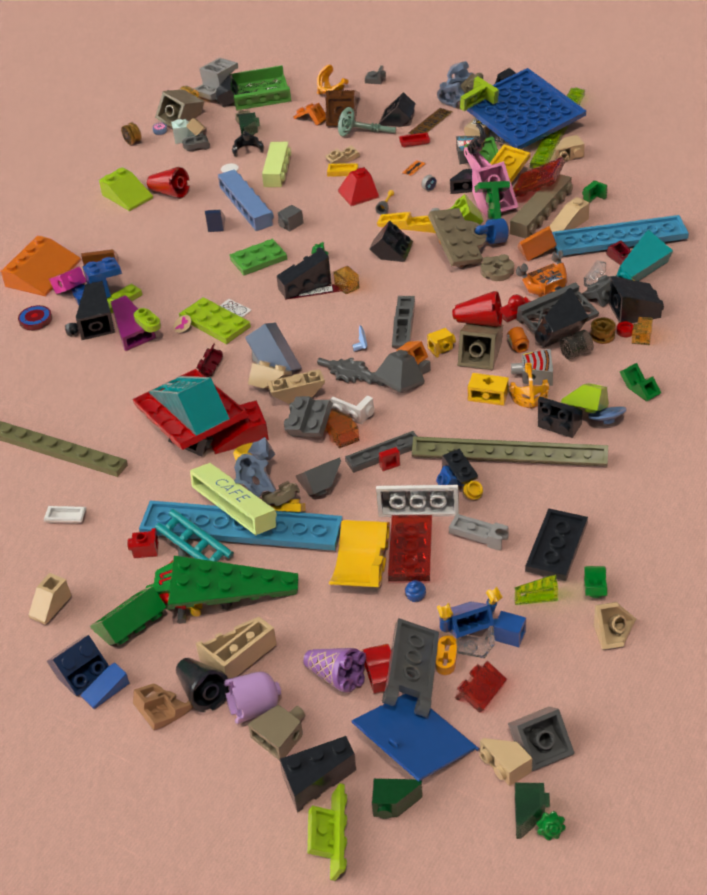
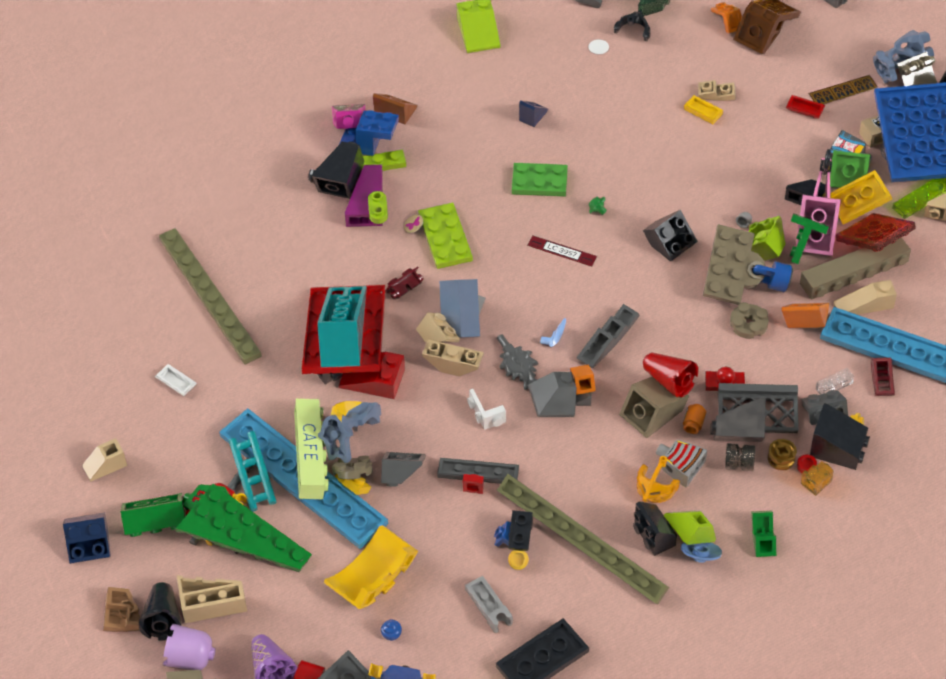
camera: 30 degrees right, 10 degrees up
(35, 317) = (295, 142): dark red tile -> none
(37, 264) = (337, 81): orange slope -> none
(105, 686) = (94, 568): blue slope -> none
(144, 544) = (214, 449): red brick -> none
(170, 182) = (523, 41): red cone -> none
(235, 307) = (473, 230): white sticker -> none
(245, 200) = (578, 100): medium blue brick -> none
(276, 164) = (642, 68): yellowish green brick -> none
(290, 218) = (602, 147): dark grey brick -> none
(305, 276) = (558, 231): black wedge -> none
(307, 417) = (435, 398): dark grey plate -> none
(341, 429) = (458, 425): clear orange slope -> none
(346, 279) = (594, 256): clear yellow brick -> none
(350, 122) = (755, 51): sand green dish -> none
(358, 187) = (696, 144): red slope -> none
(380, 207) = (701, 181): dark grey hinge -> none
(398, 112) = (816, 61): black slope -> none
(406, 222) = (709, 211): yellow slope -> none
(410, 548) = (420, 585): clear red plate -> none
(413, 168) = (776, 144): orange sticker -> none
(418, 500) = (461, 541): white slope -> none
(429, 182) = (769, 175): tile -> none
(440, 341) = (621, 379): yellow brick -> none
(481, 91) = (894, 92): lime bracket -> none
(488, 389) = (619, 459): yellow brick -> none
(546, 278) = (777, 364): torso -> none
(594, 190) = (922, 277): green bracket -> none
(645, 258) = (893, 393): teal slope -> none

